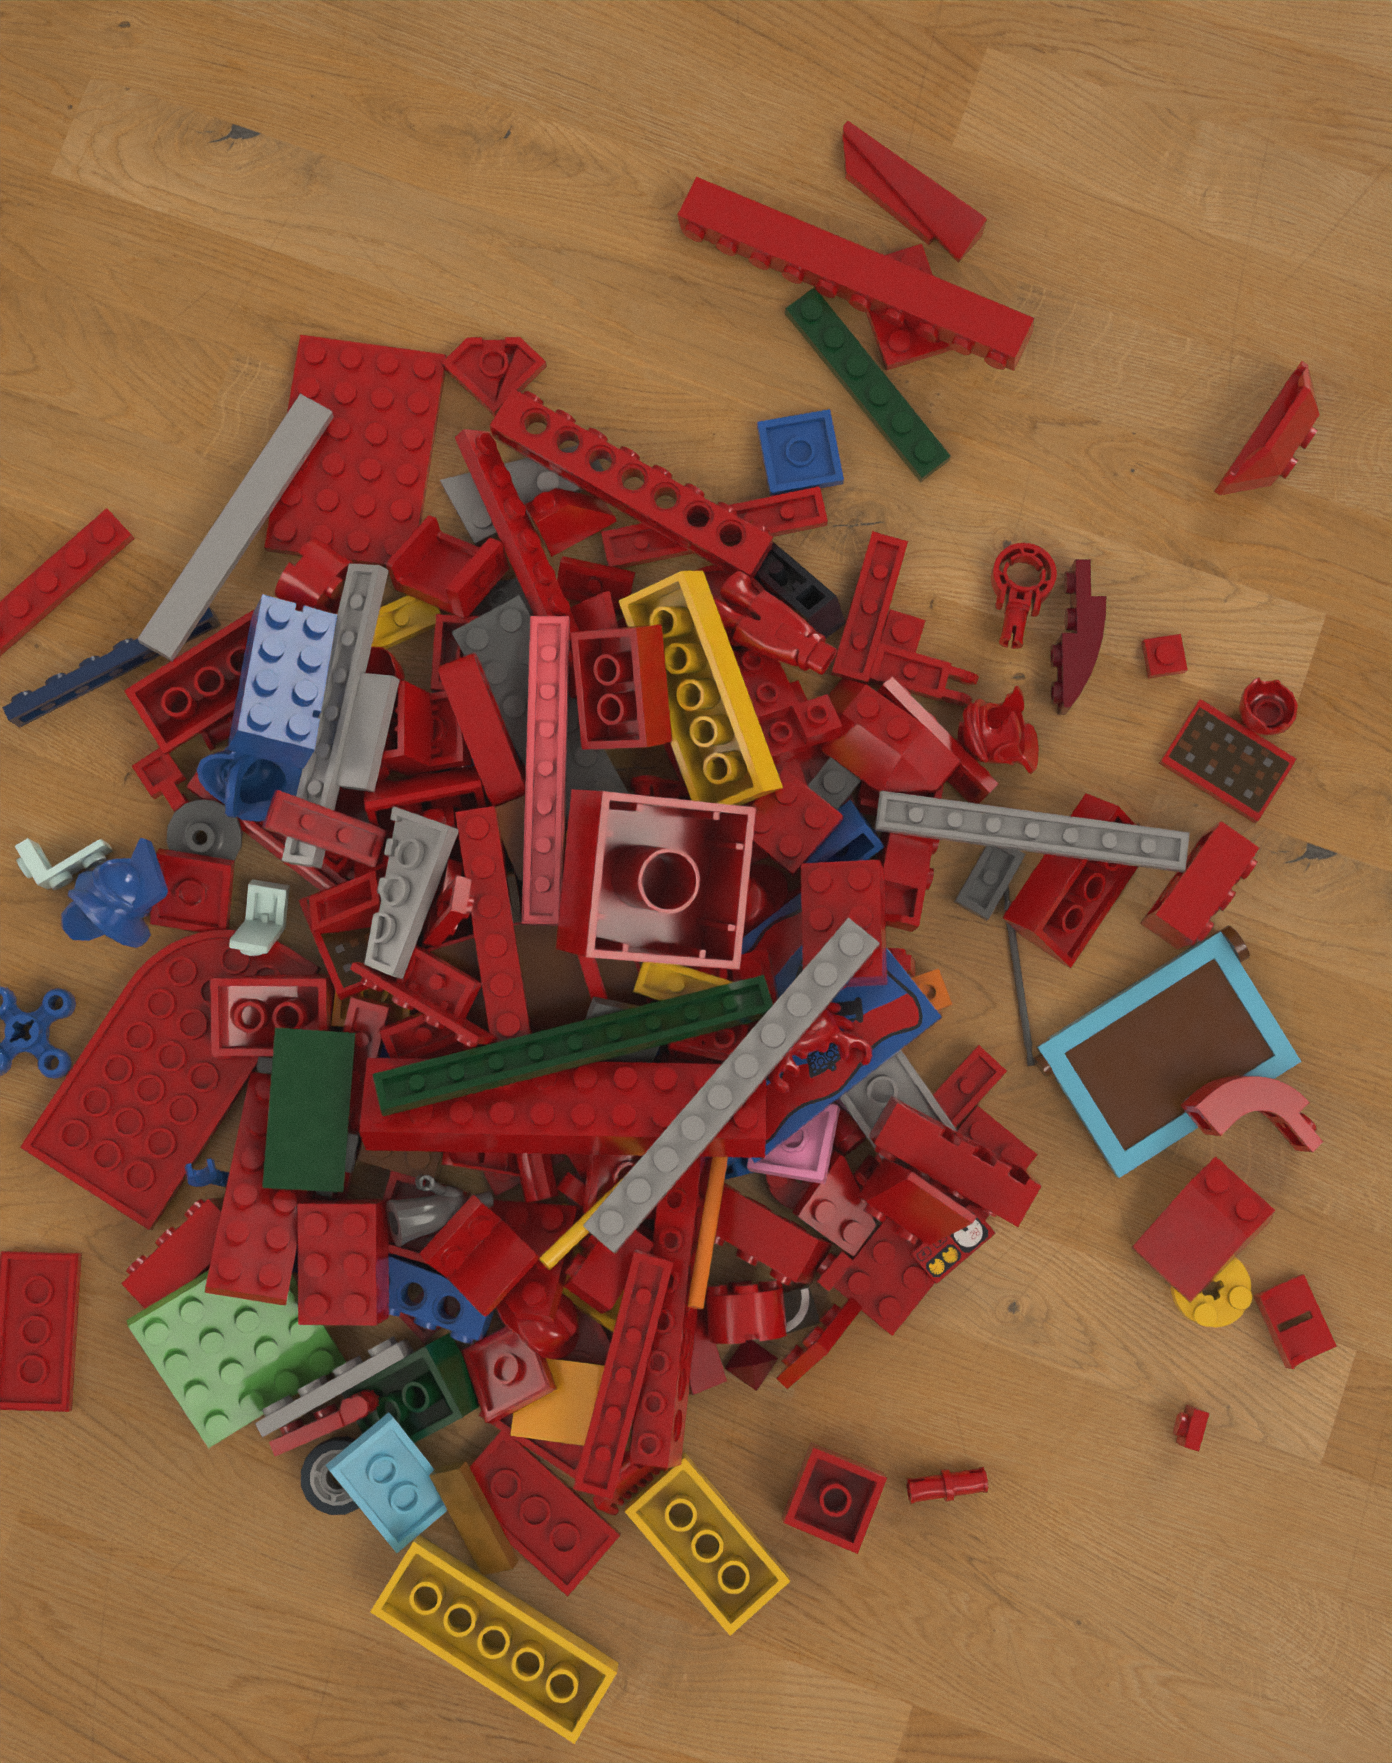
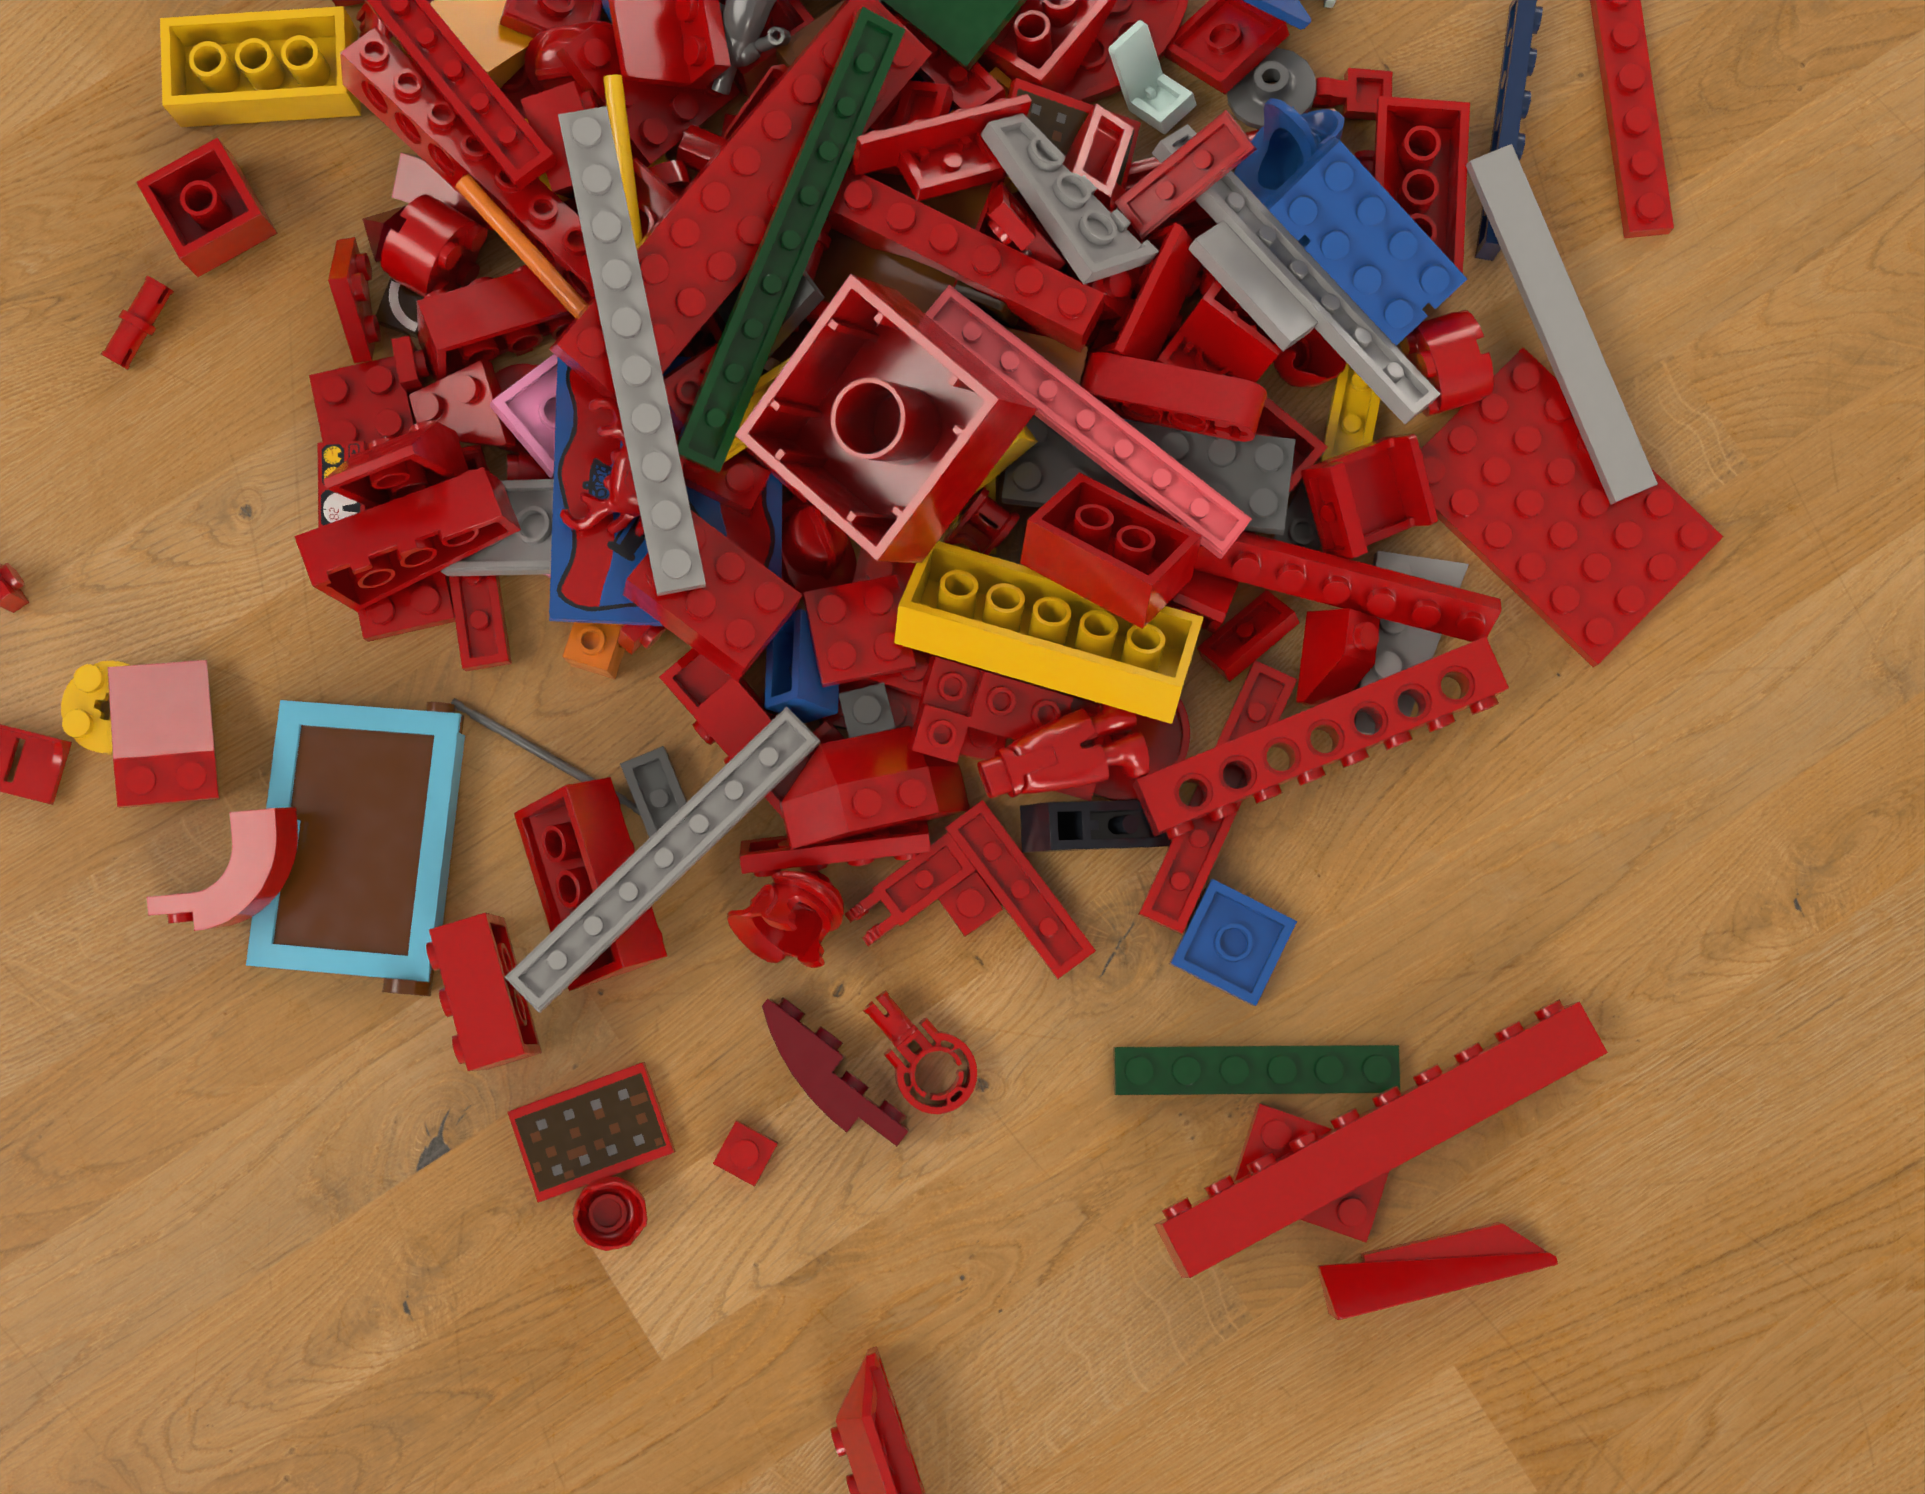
camera: 125 degrees right, 0 degrees up
(493, 368) = (1548, 701): red plate -> none

